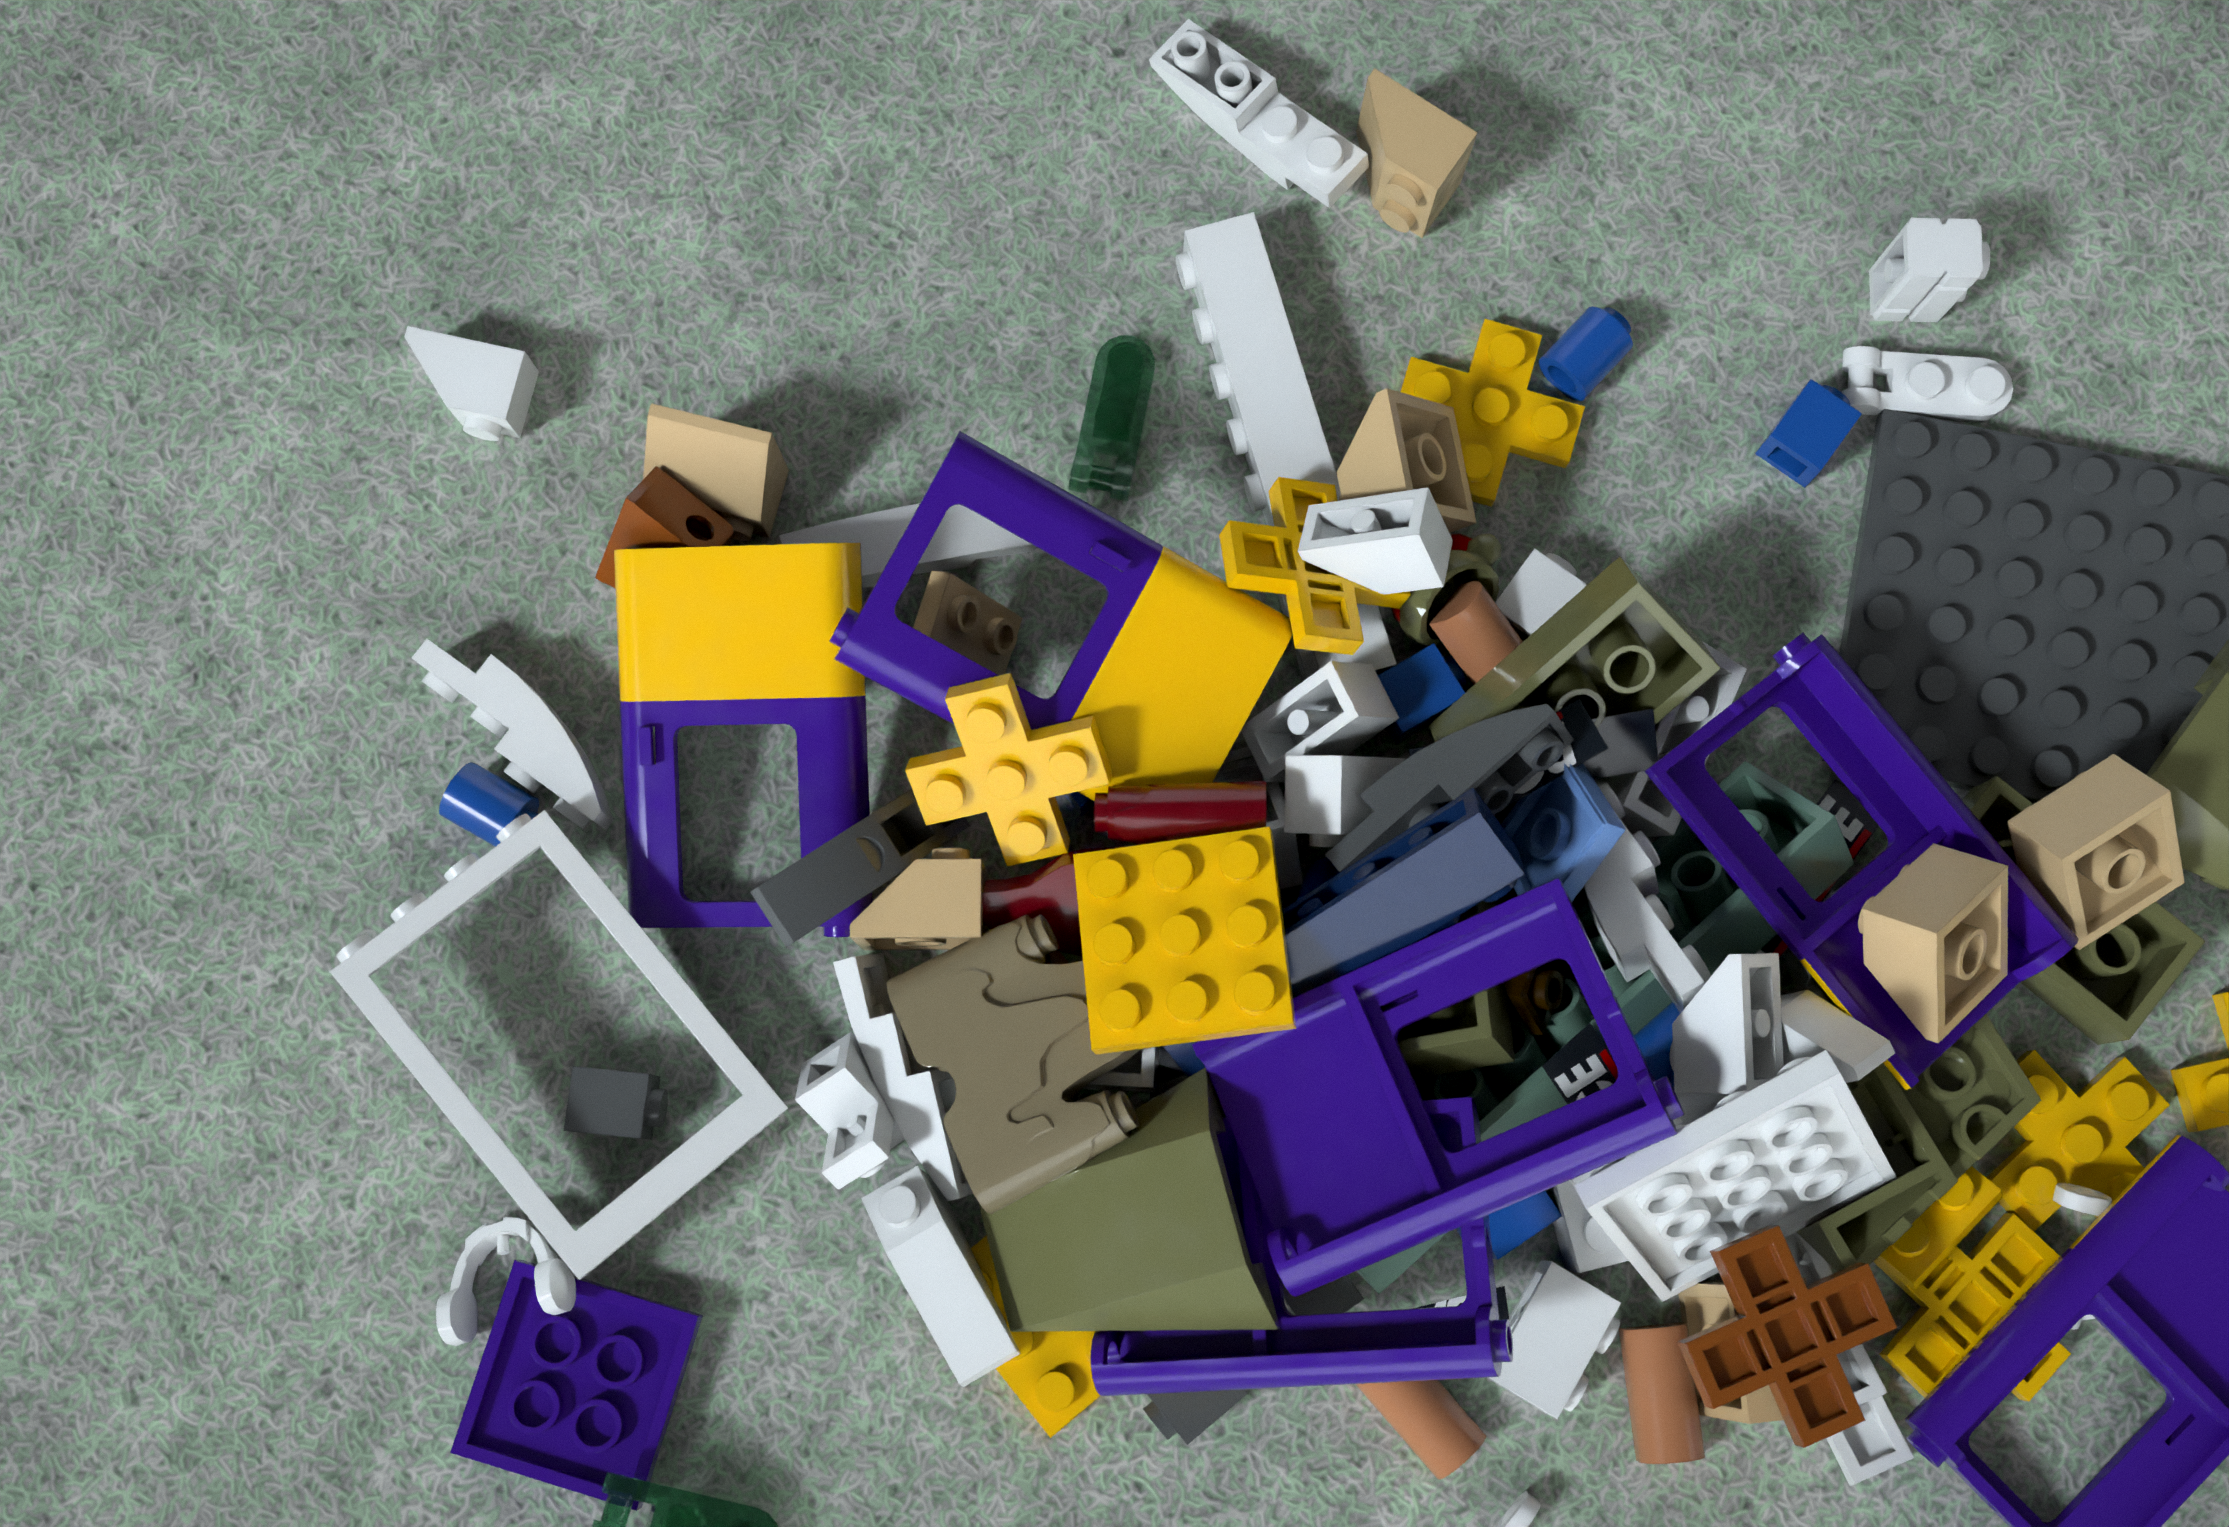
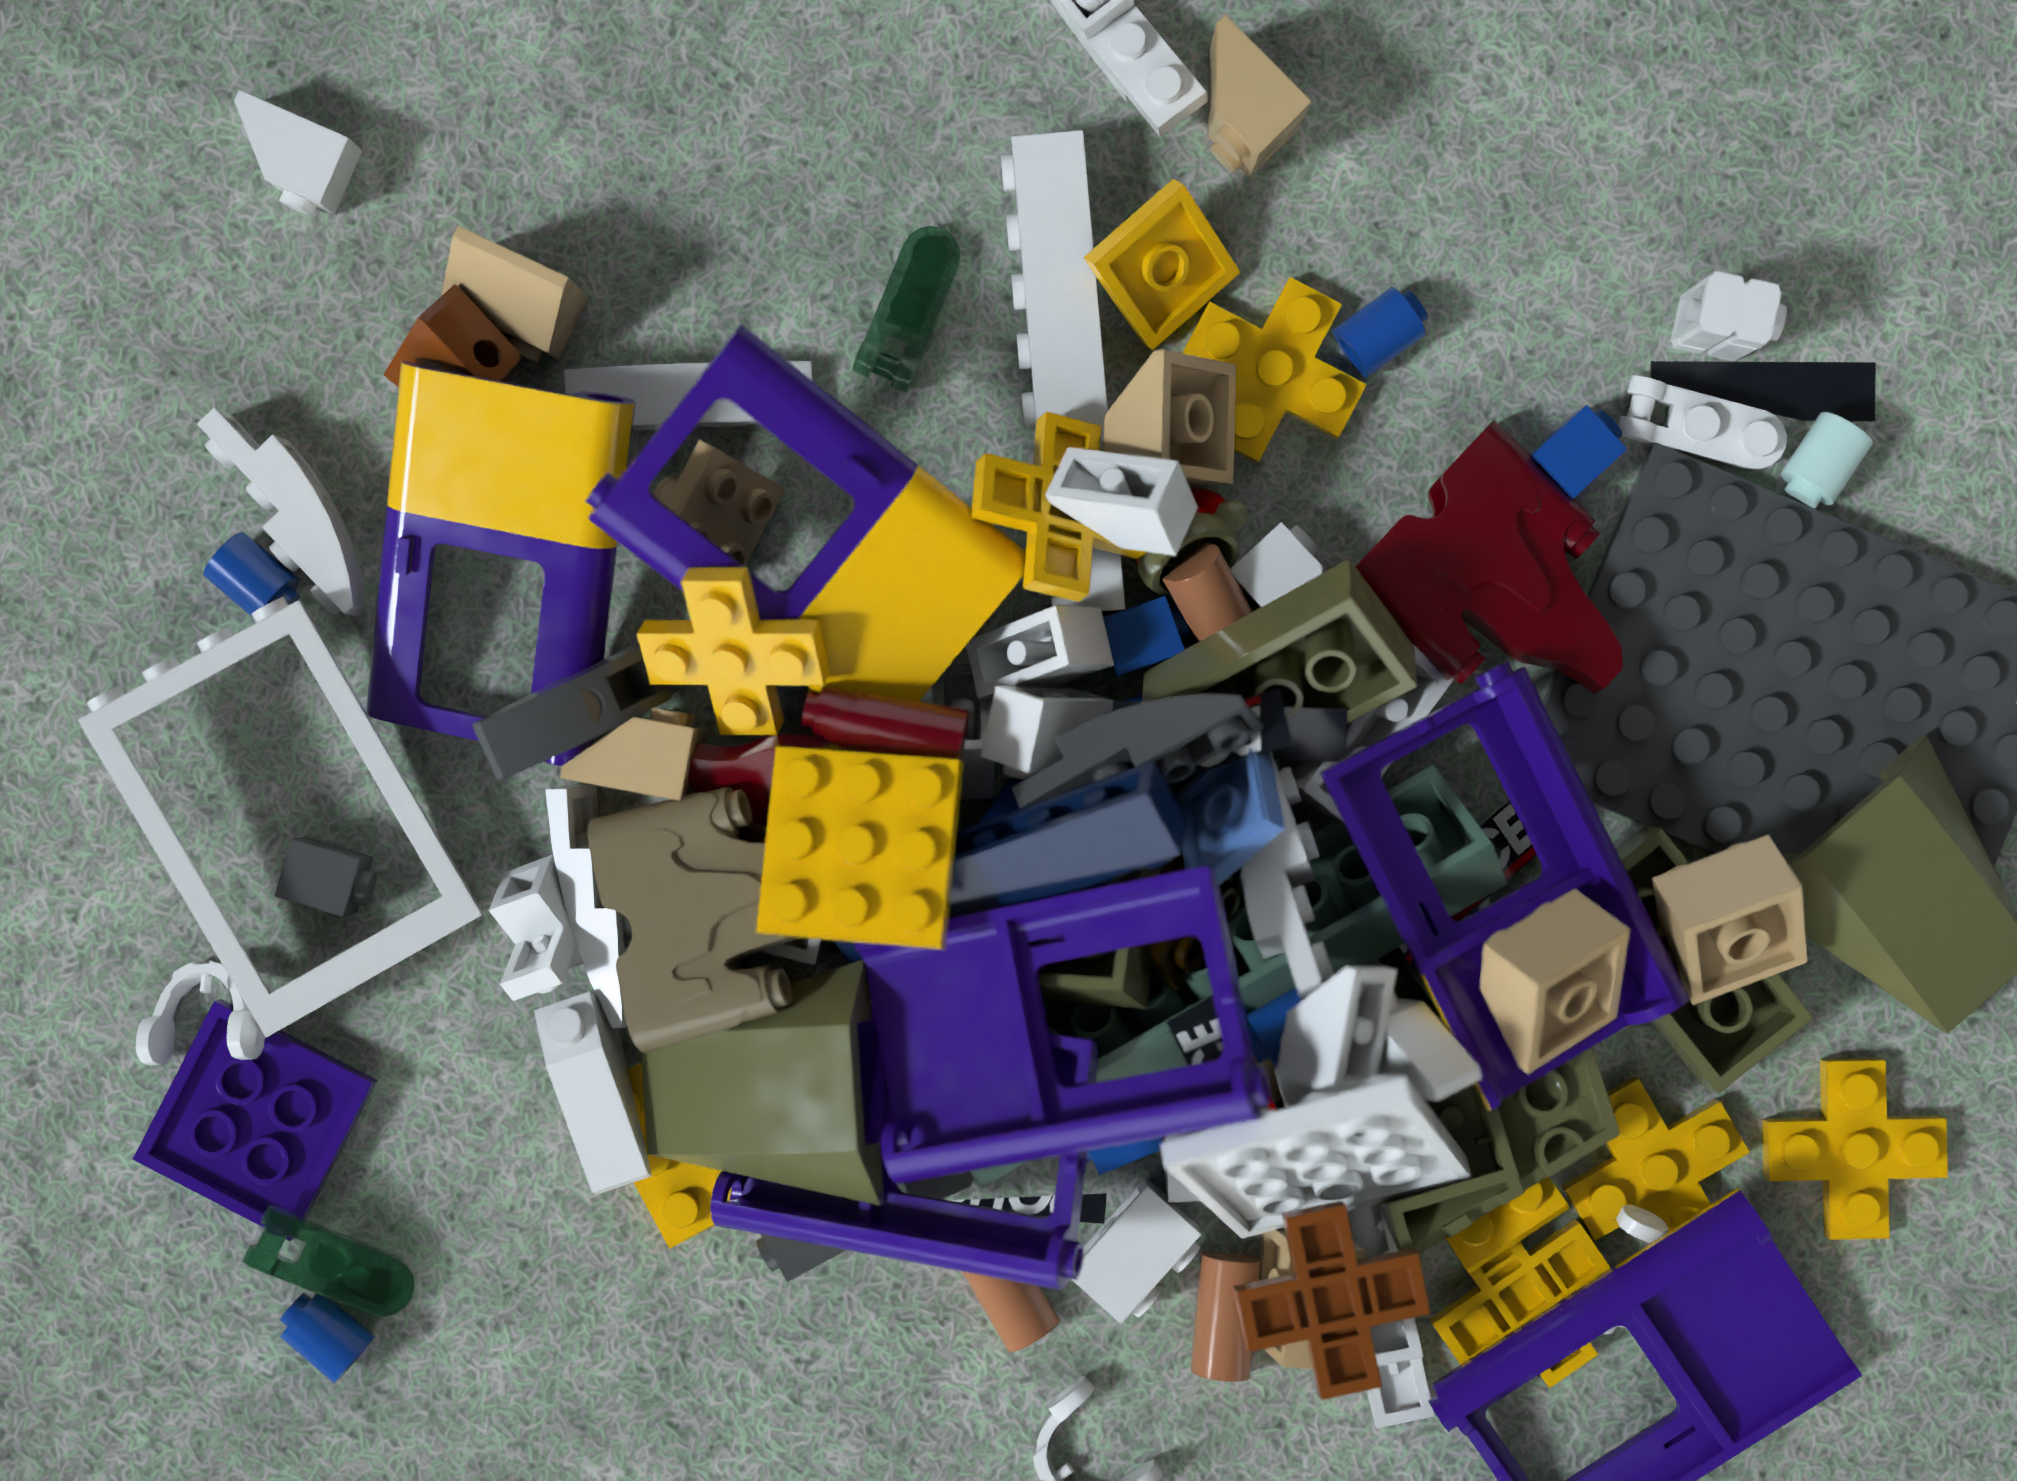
camera: 10 degrees right, 10 degrees up
(1358, 325) = (1162, 264): none -> yellow plate
(1761, 549) = (1498, 565): none -> dark red rock
(2005, 336) = (1781, 388): none -> black sticker
(2056, 392) = (1825, 460): none -> light aqua brick

